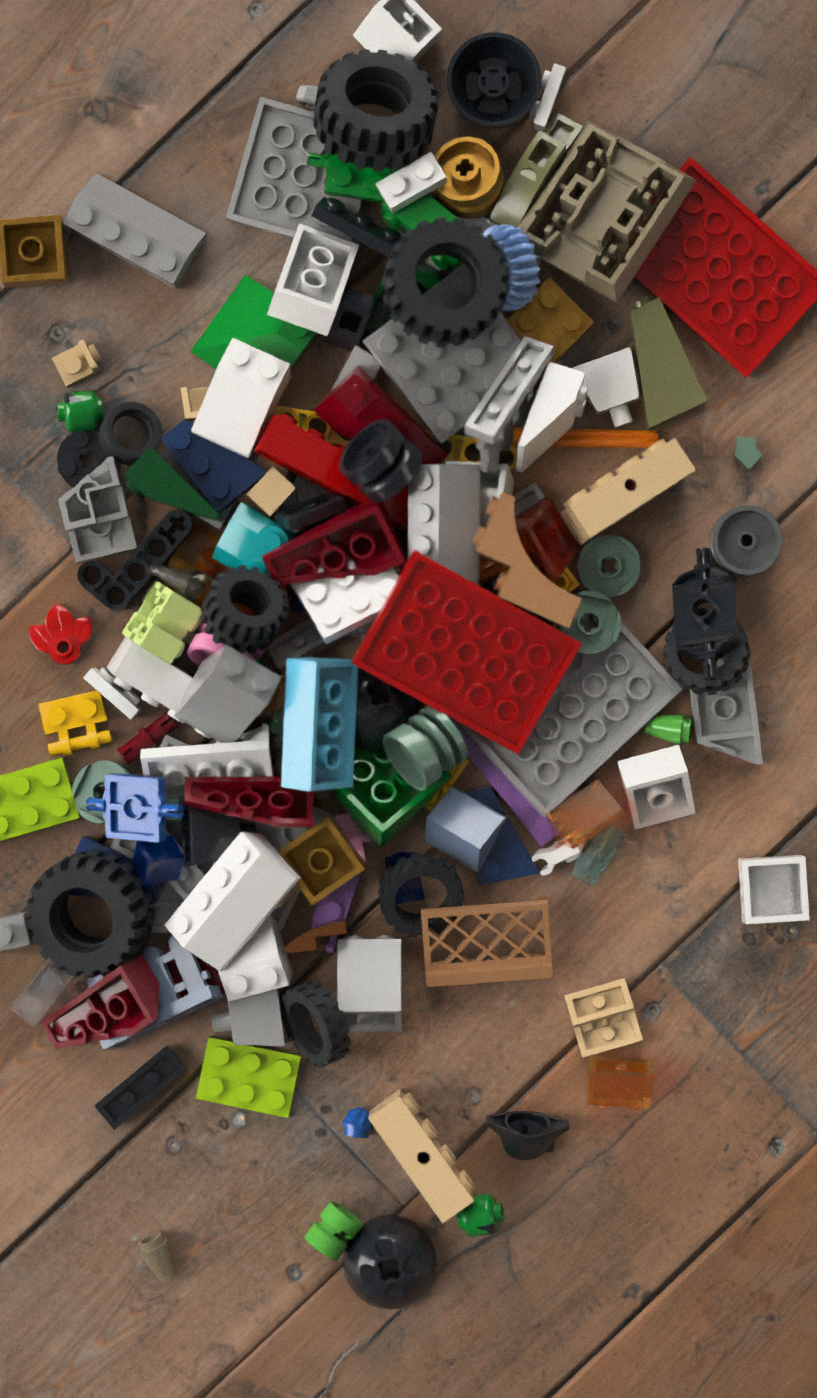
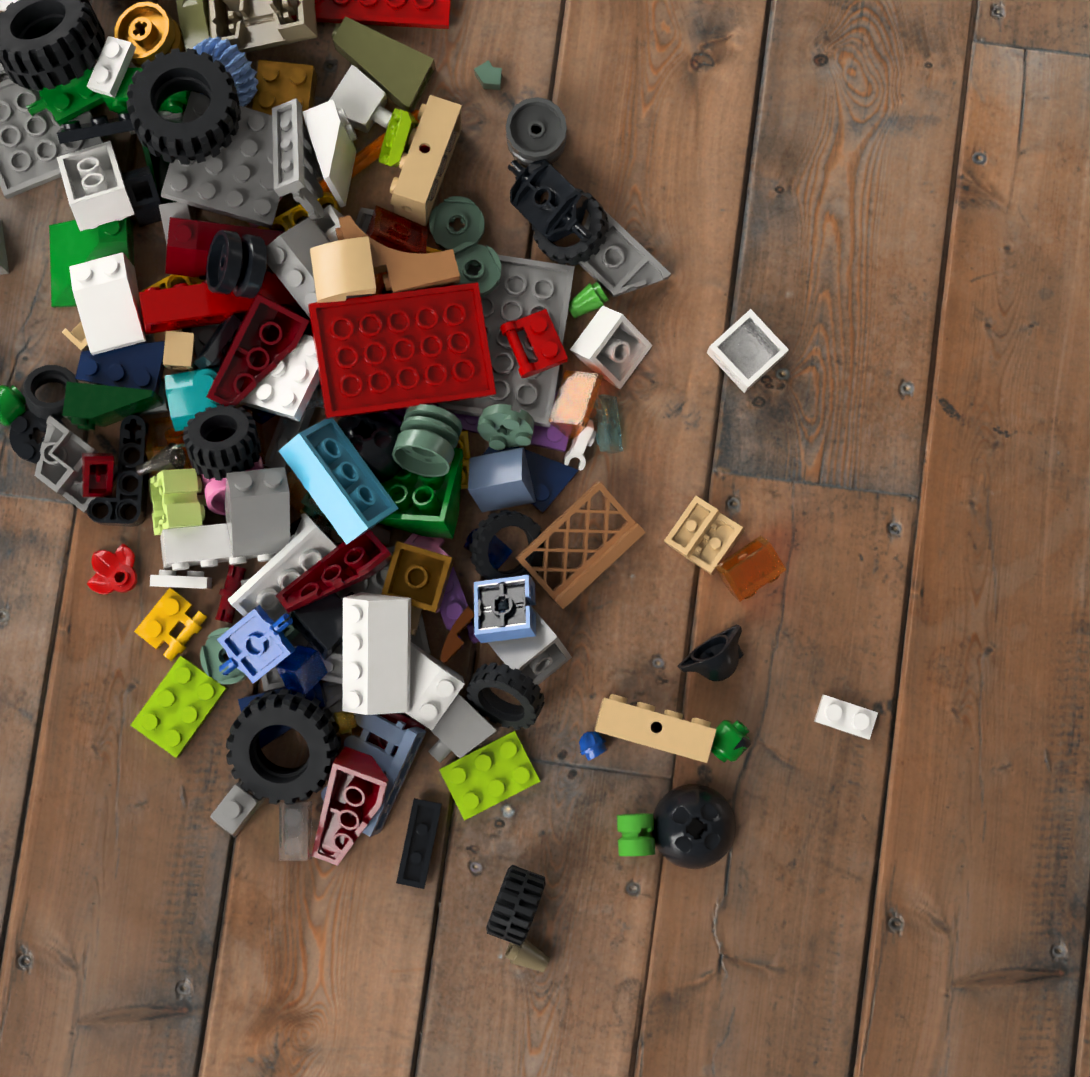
camera: 40 degrees left, 5 degrees down
(115, 540) = (97, 474): none -> dark red slope
(159, 934) = (345, 722): none -> clear yellow plate
(182, 1209) = (516, 905): none -> black tyre
(374, 949) = (504, 609): none -> piece
(469, 543) = (342, 269): none -> tan slope
(503, 788) = (505, 427): none -> sand green plate
(598, 1275) = (846, 717): none -> white plate
(599, 735) = (542, 339): none -> red plate
(615, 449) = (397, 137): none -> lime slope

